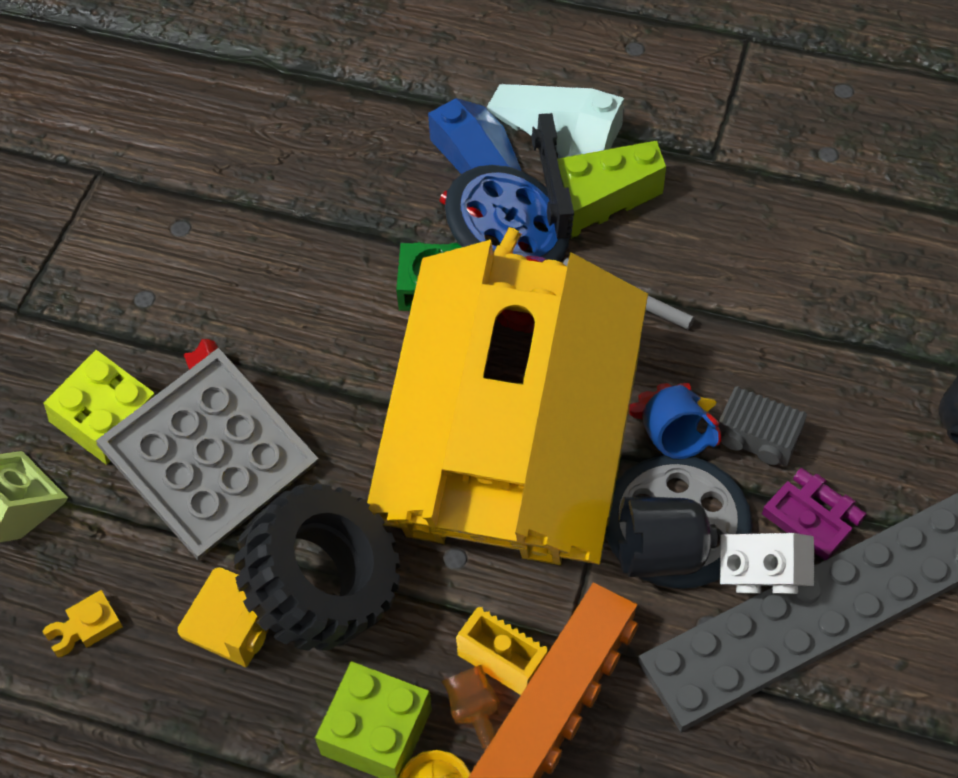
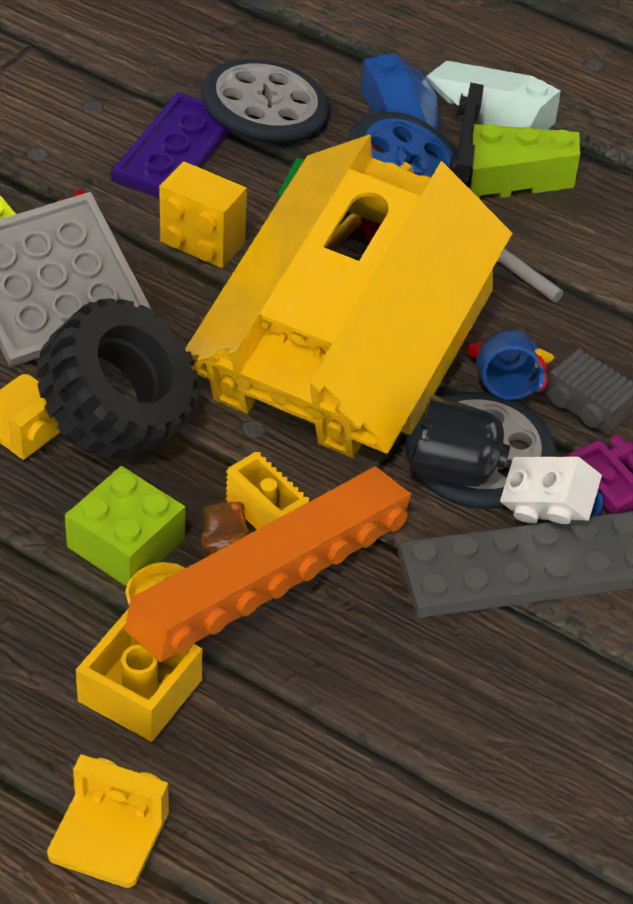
camera: 10 degrees right, 10 degrees down
(275, 256) = (176, 135): none -> dark purple tile
(332, 335) = (203, 214): none -> yellow brick
(363, 210) = (233, 114): none -> wedge

